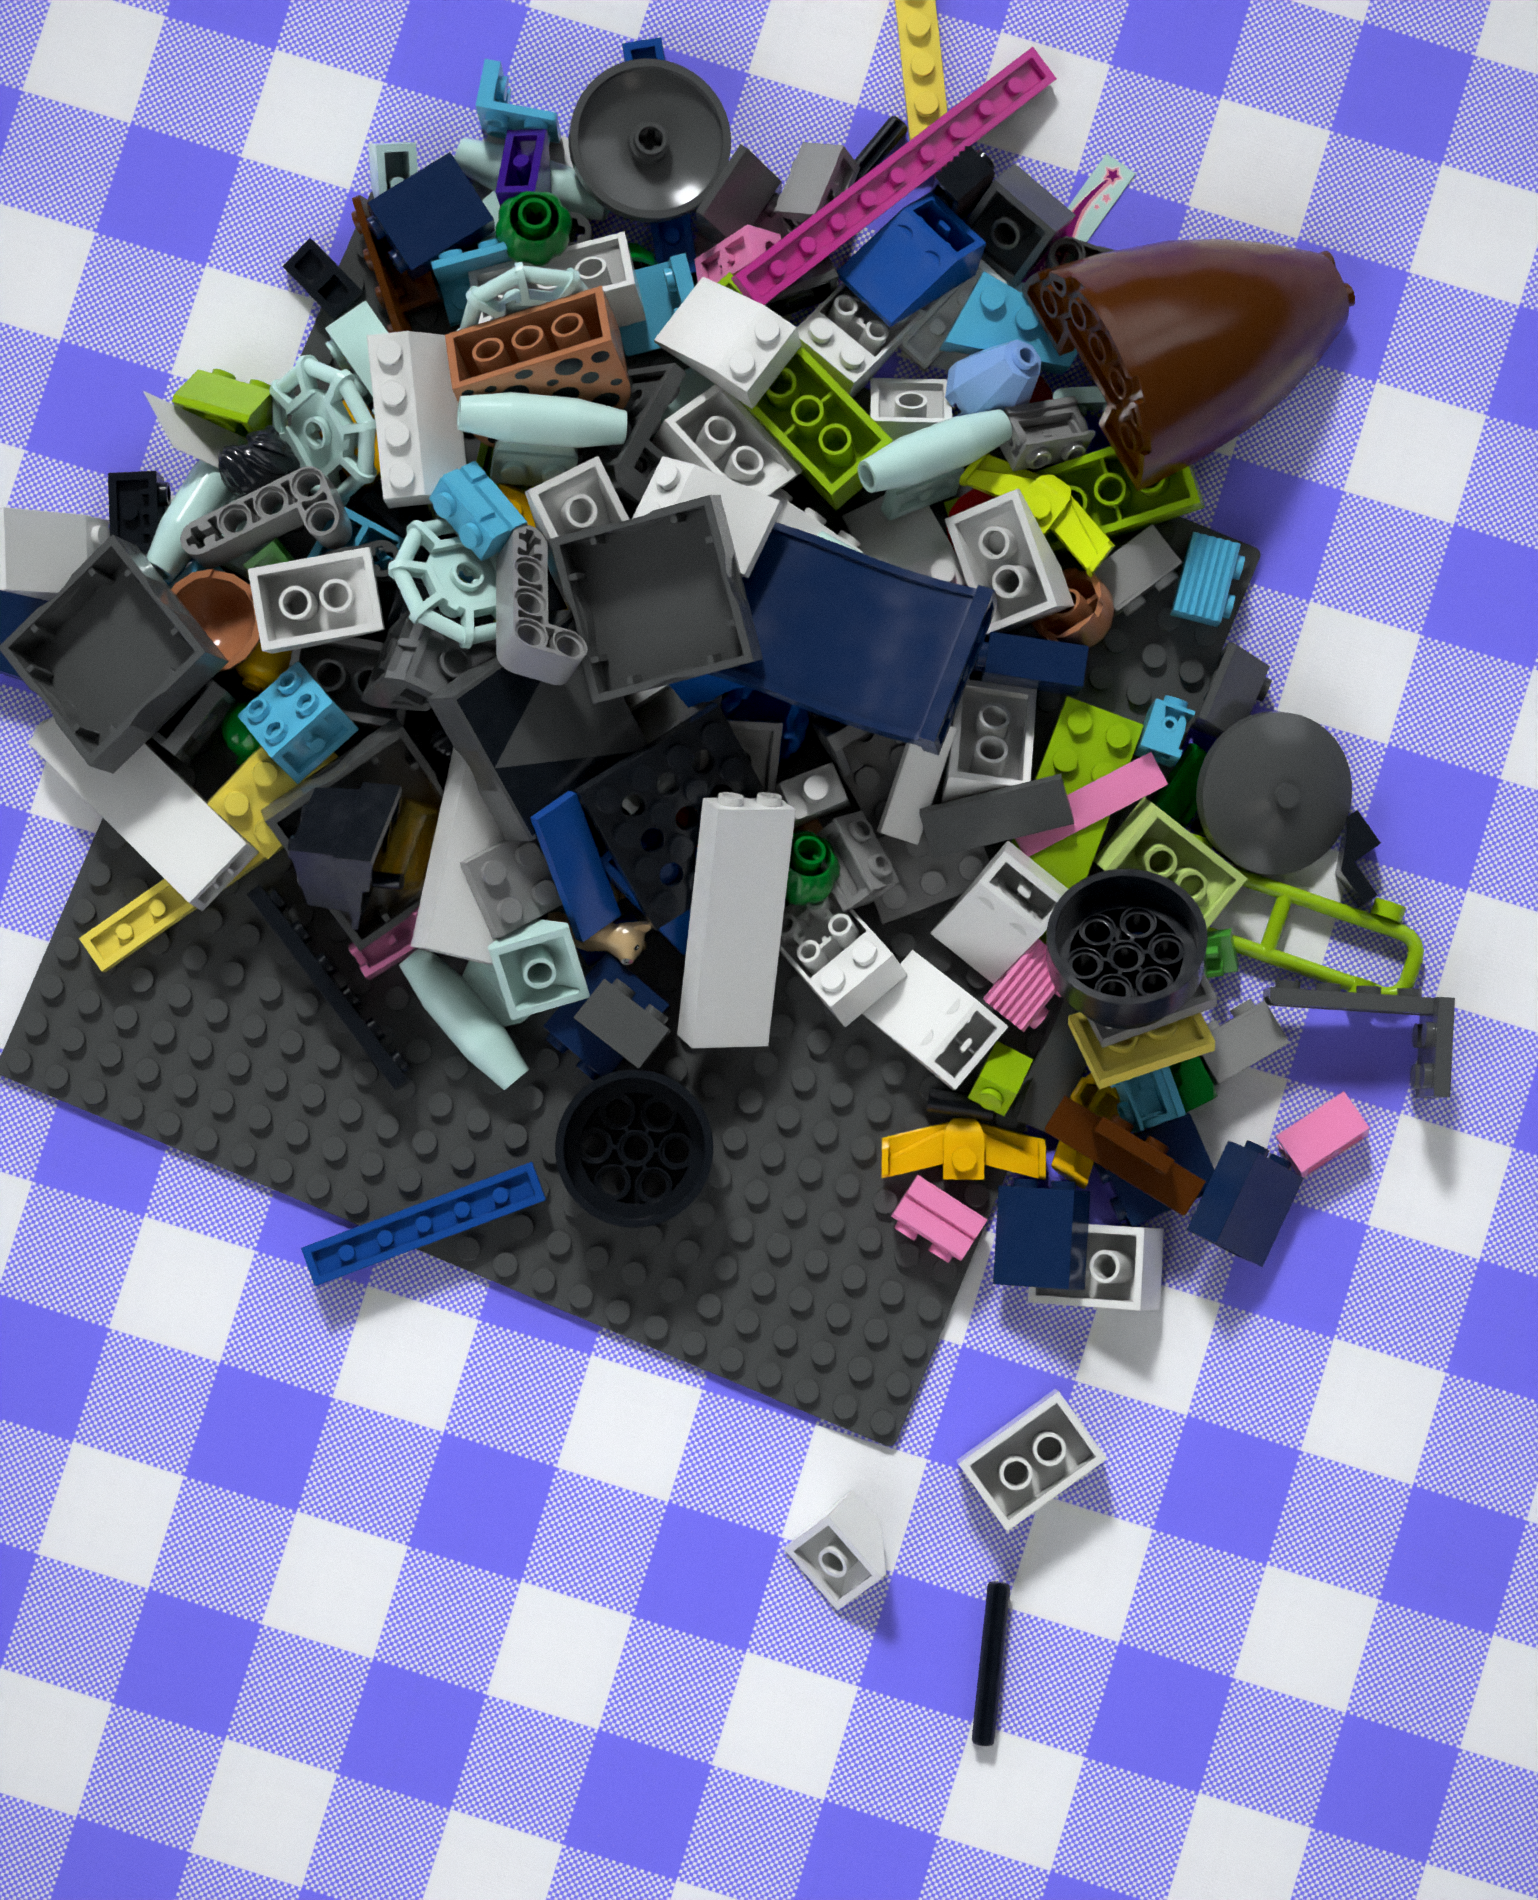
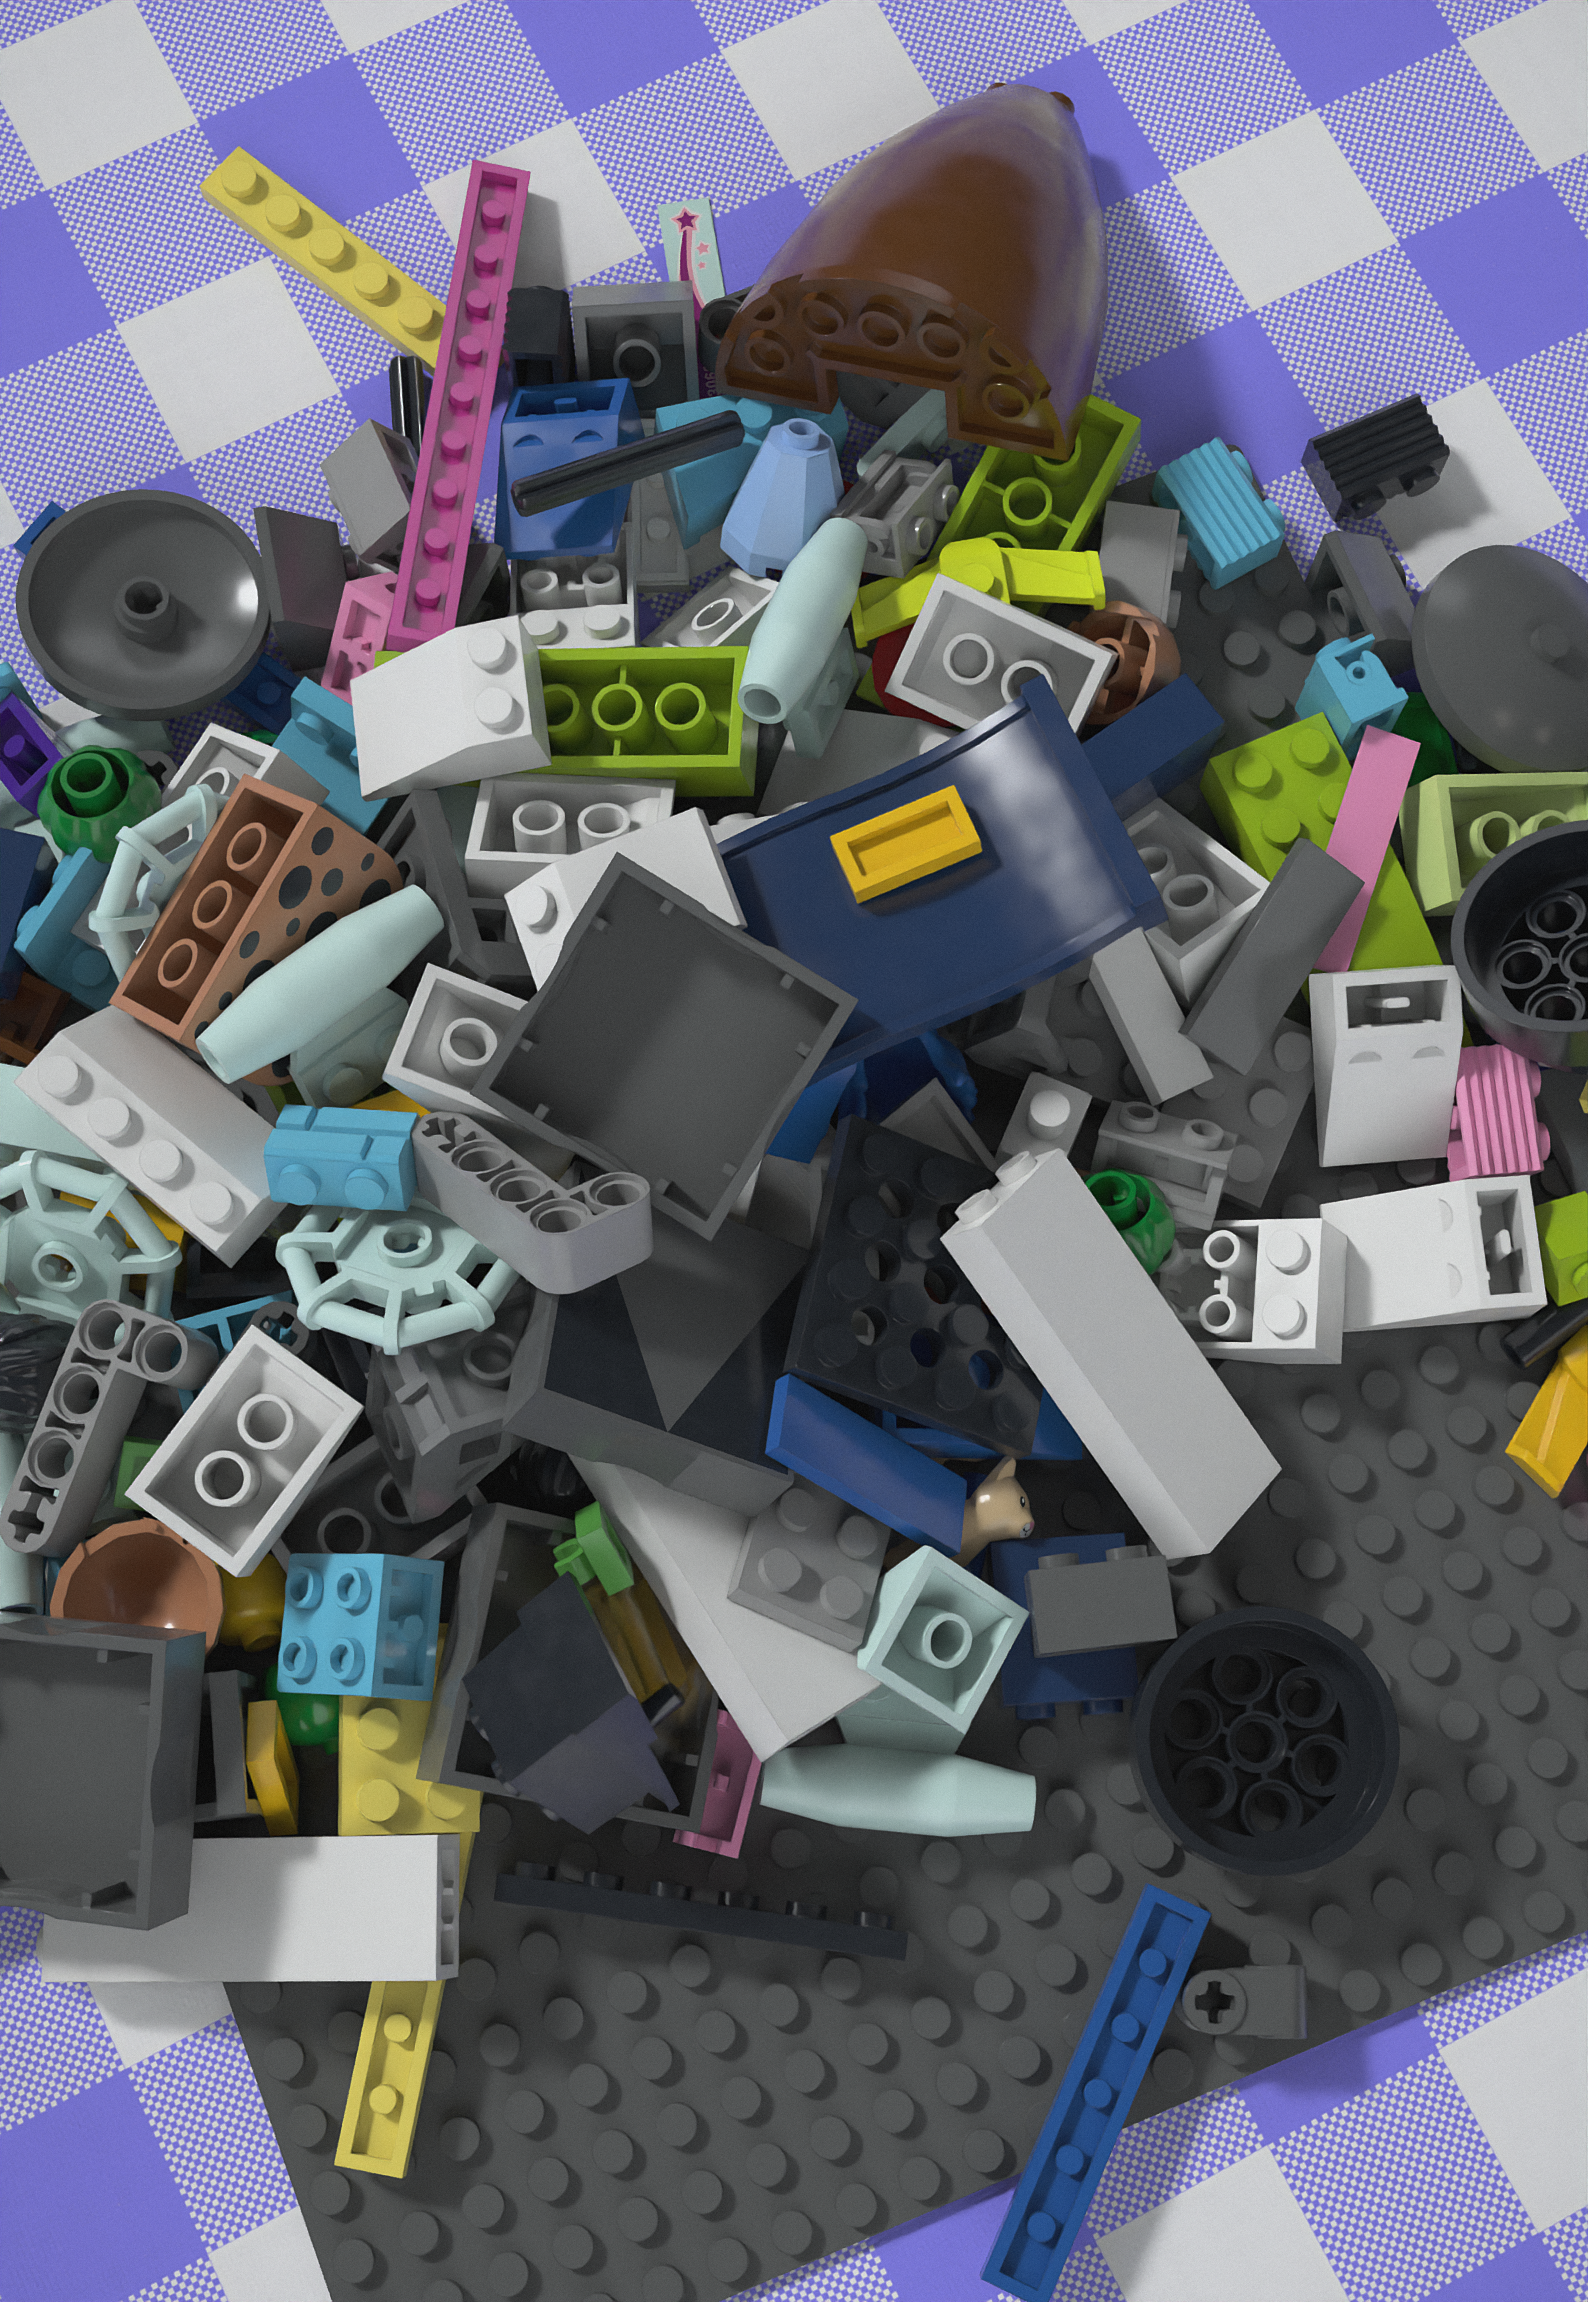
camera: 50 degrees left, 10 degrees down
(206, 746) = (272, 1768): none -> yellow tile
(425, 788) = (595, 1551): none -> bright green tile
(530, 1256) = (1255, 2001): none -> dark grey piece
(859, 607) = (906, 844): none -> yellow tile
(936, 290) = (627, 463): none -> black axle
(1316, 625) = (1376, 459): none -> black brick

